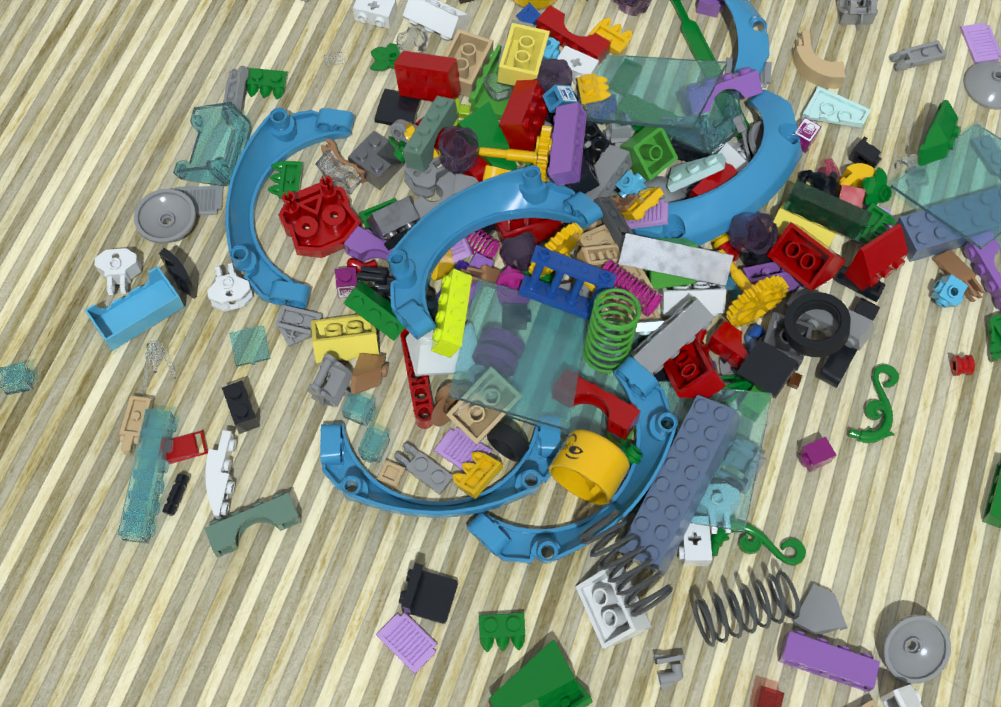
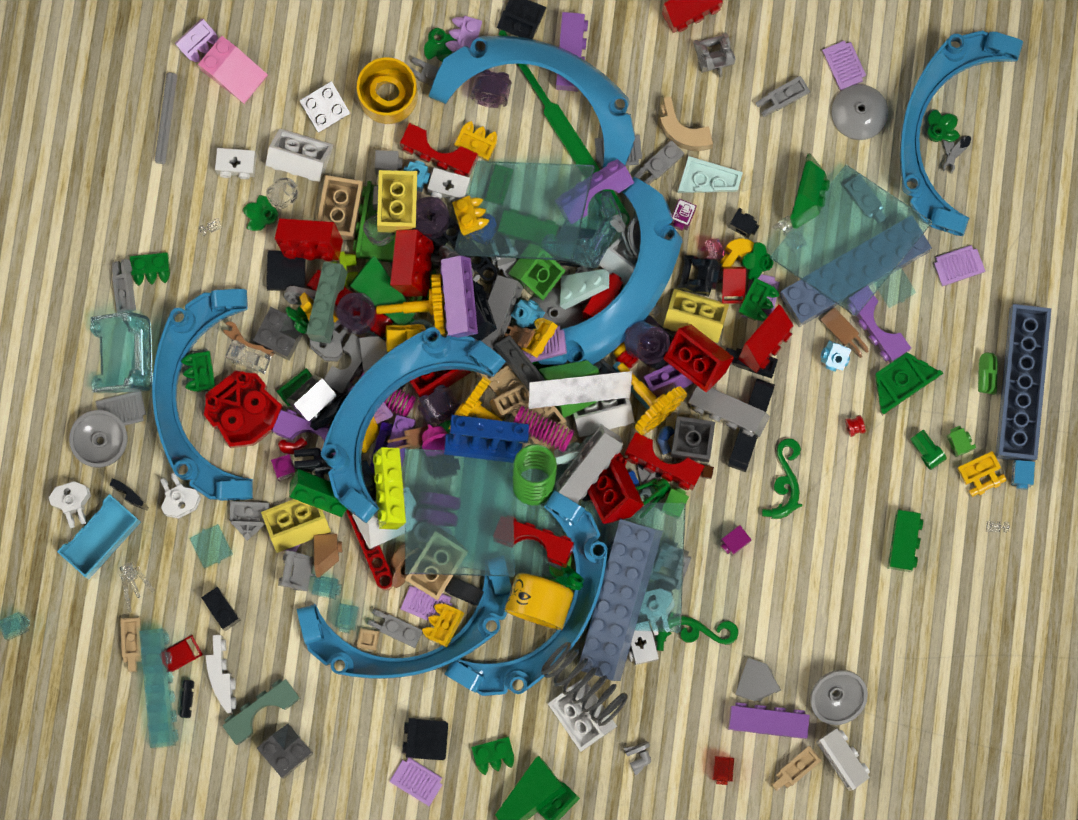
camera: 10 degrees left, 15 degrees up
(266, 573) = (285, 750): none -> flat silver slope
(528, 14) = (391, 136): blue plate -> none
(558, 96) = (441, 242): dark azure brick -> none
(720, 609) = (660, 709): dark grey piece -> none
(767, 368) = (679, 475): black slope -> none
(792, 86) = (661, 162): none -> light grey hinge
(820, 301) = (700, 409): black tyre -> none
(828, 210) = (712, 301): clear green brick -> none

